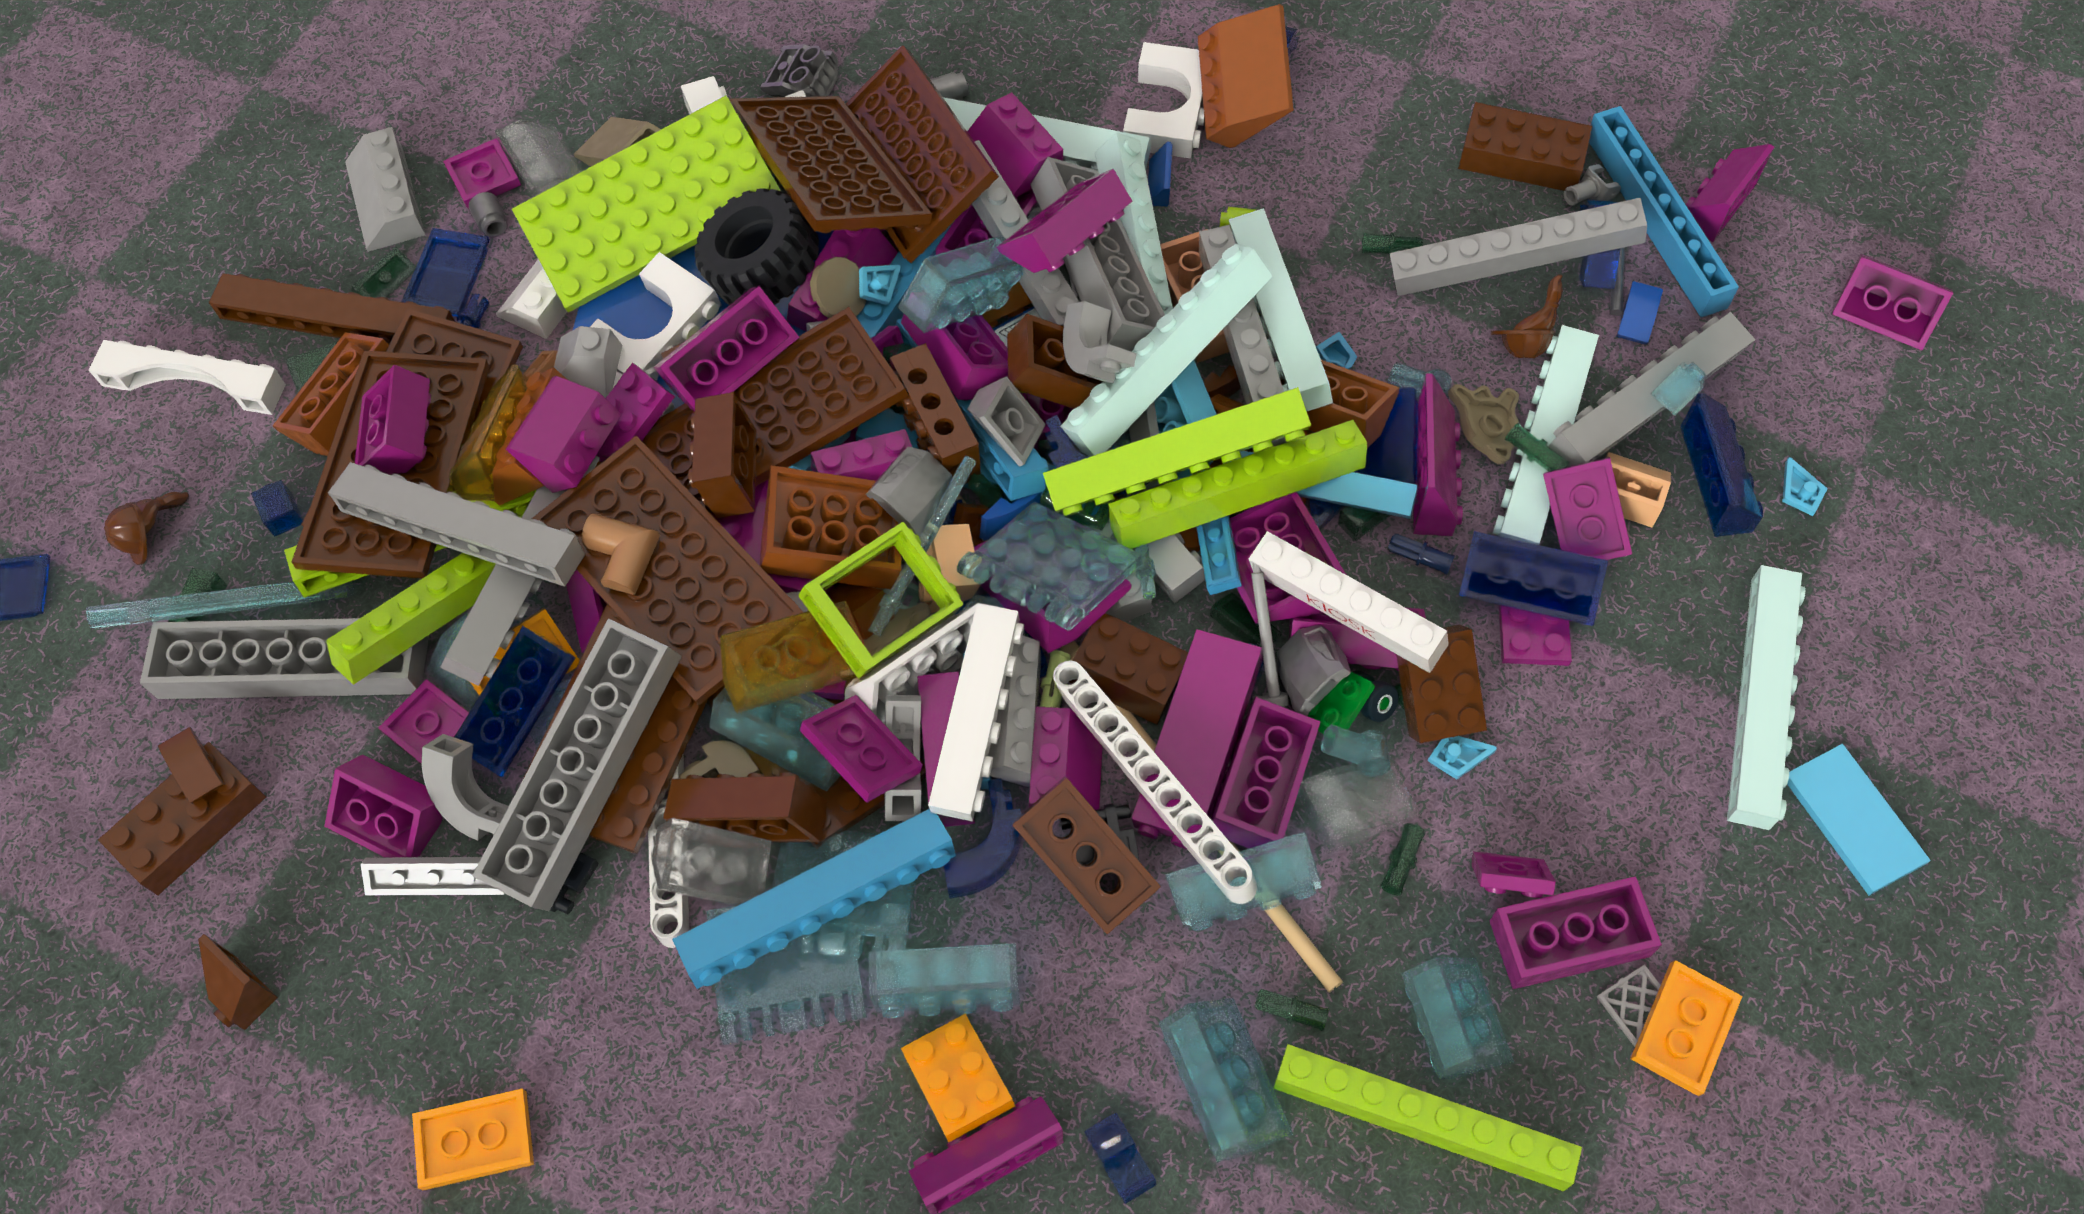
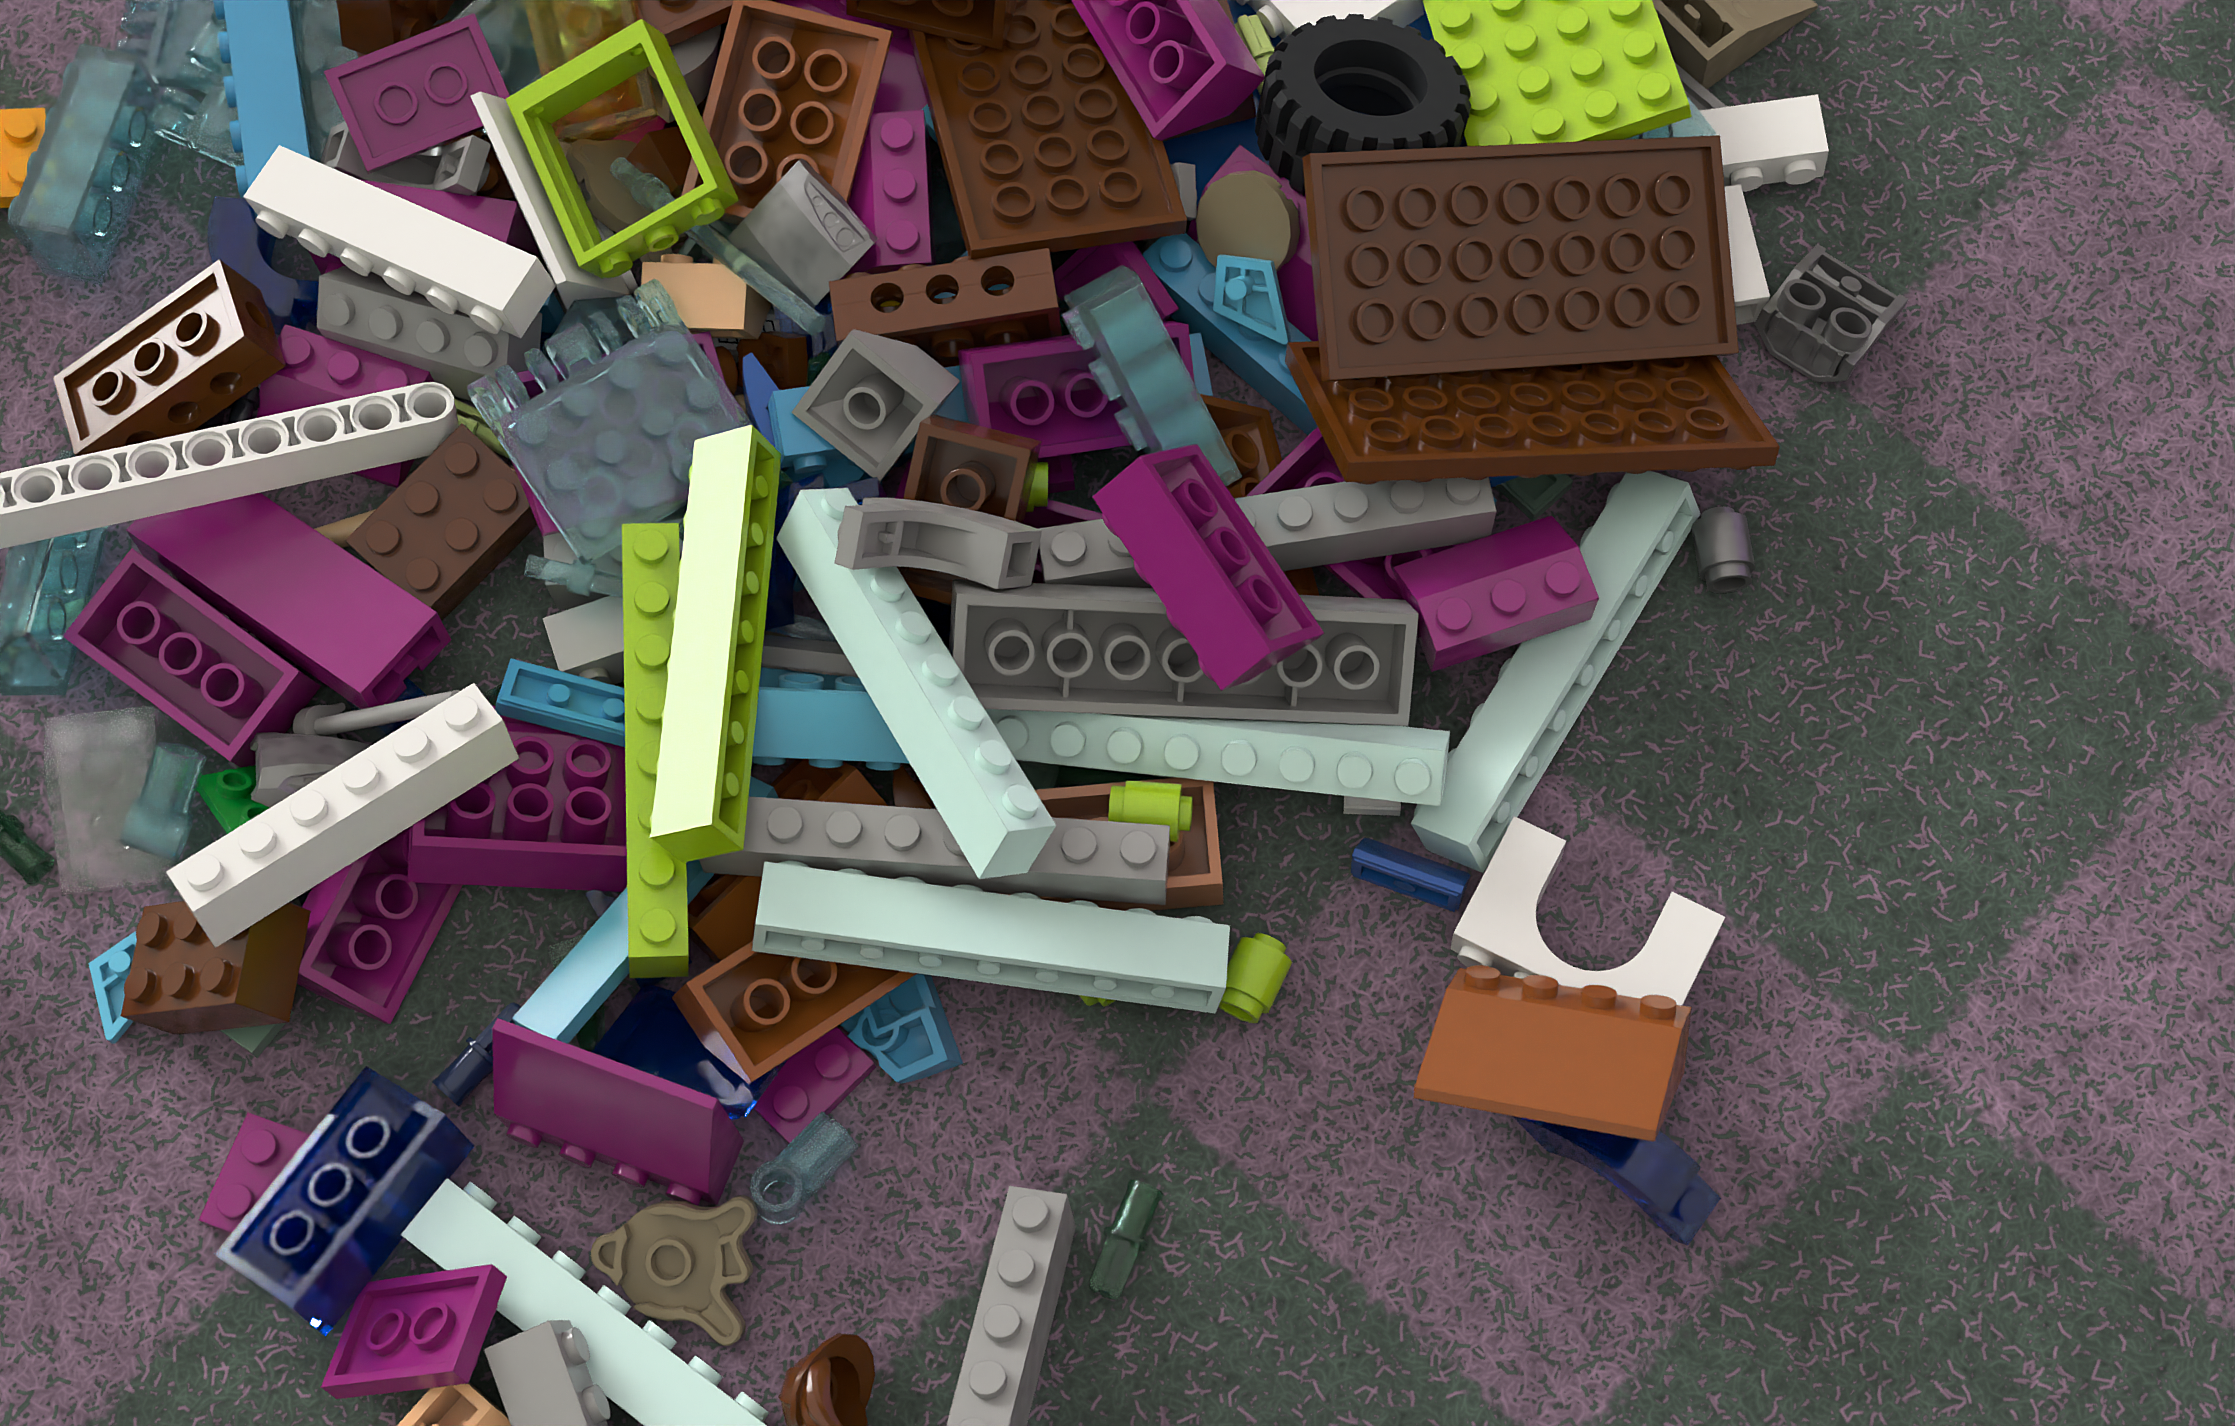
camera: 110 degrees right, 5 degrees up
(1186, 257) = (1152, 804): none -> lime brick
(1535, 449) = (559, 1290): clear green pin -> none

